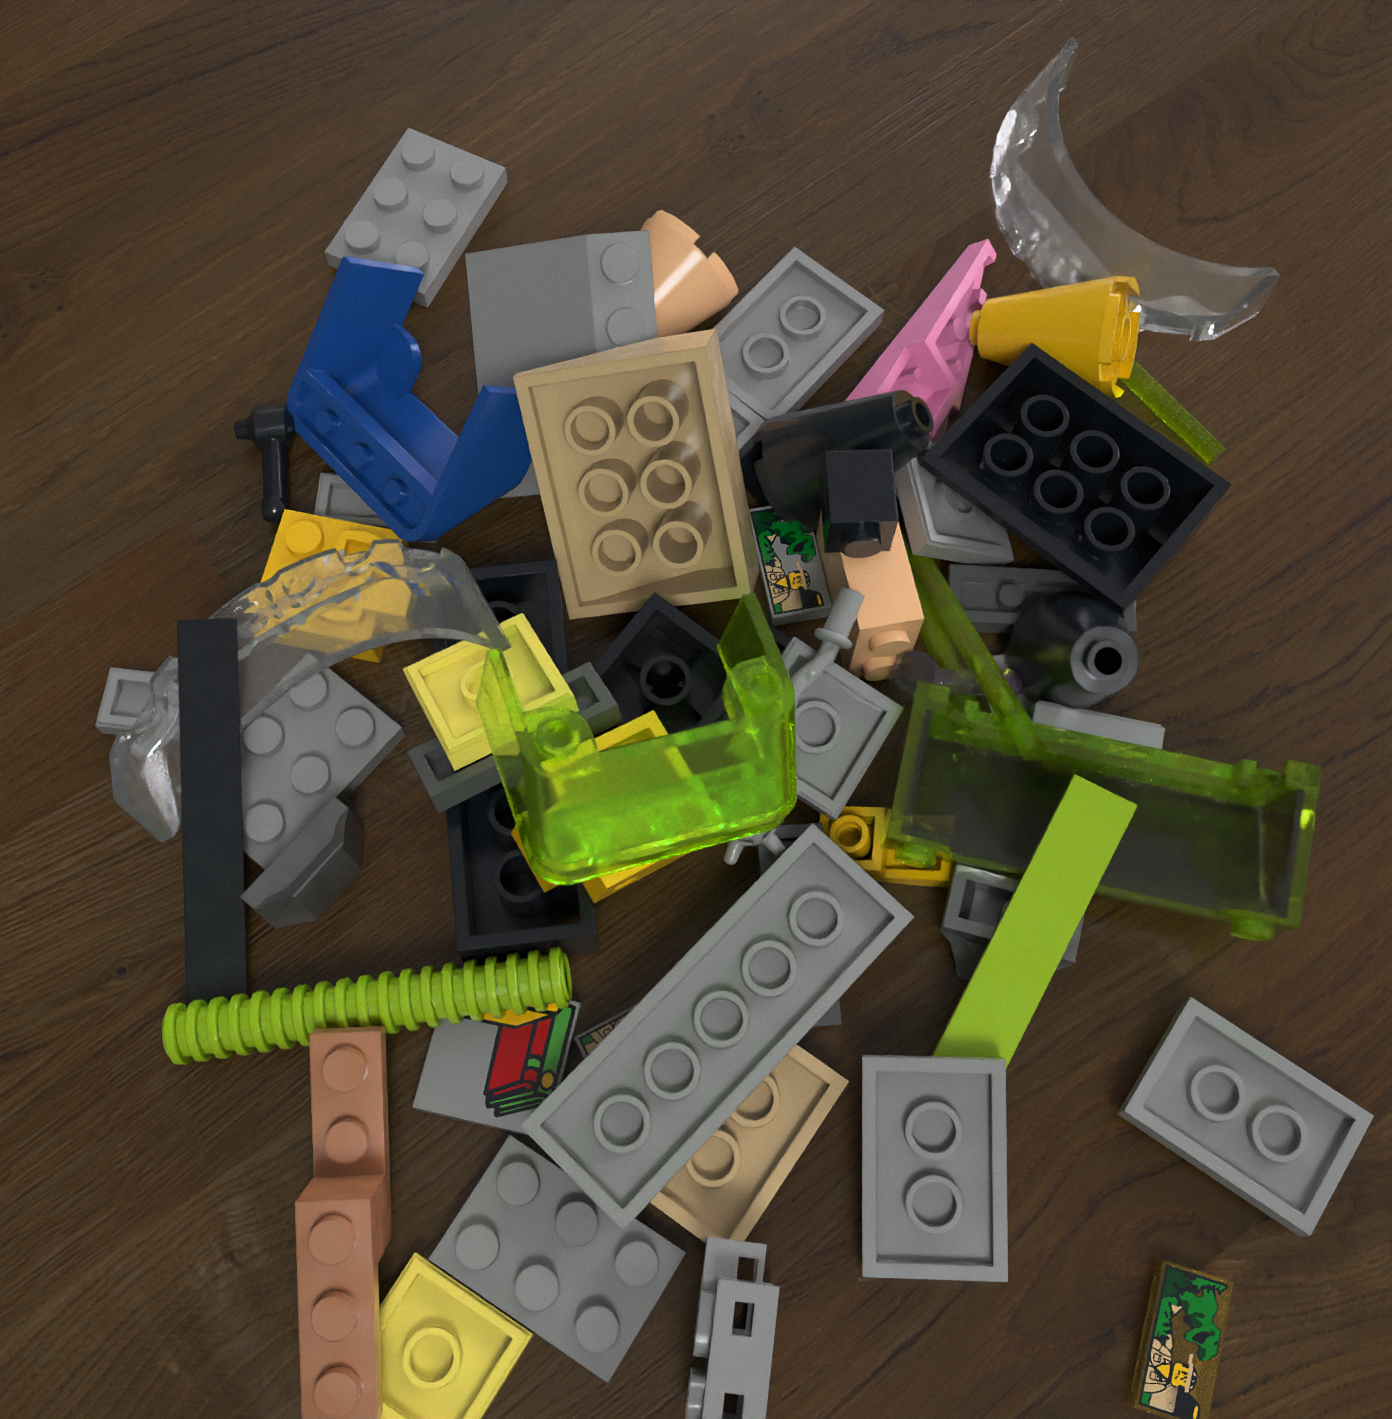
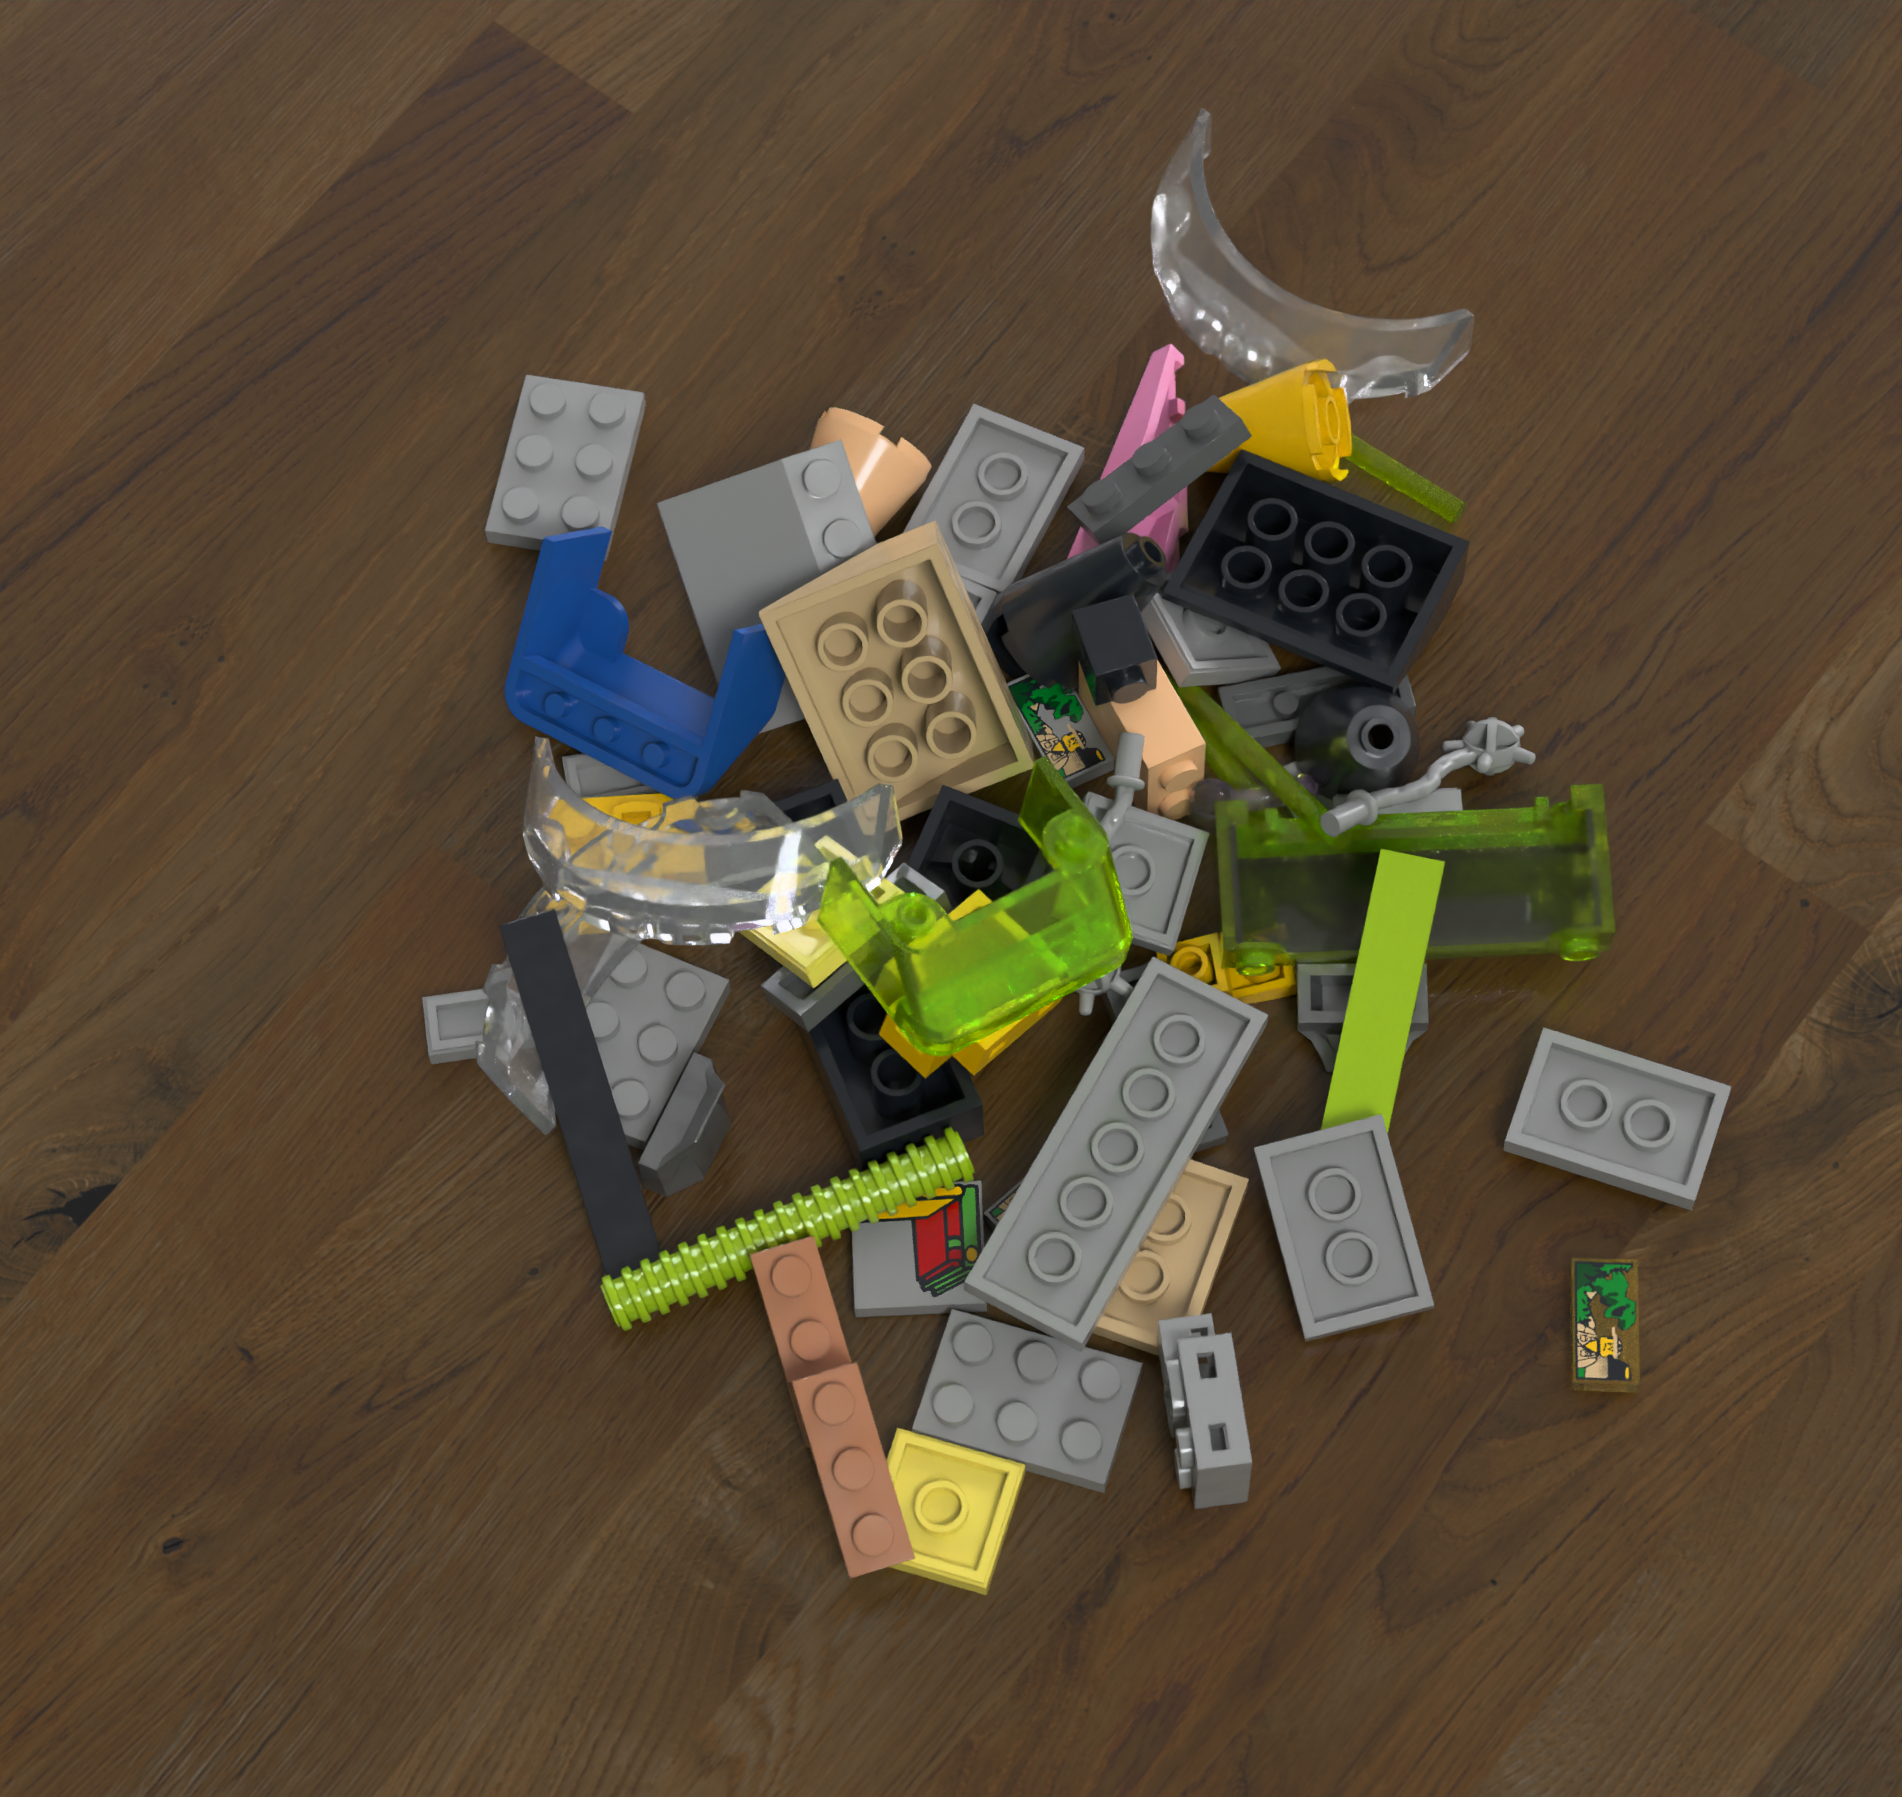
camera: 10 degrees left, 5 degrees down
(272, 432) = (498, 730): black piece -> none
(386, 639) = (697, 884): none -> clear windscreen
(950, 342) = (1159, 470): none -> dark grey plate
(1193, 688) = (1486, 746): none -> light grey piece

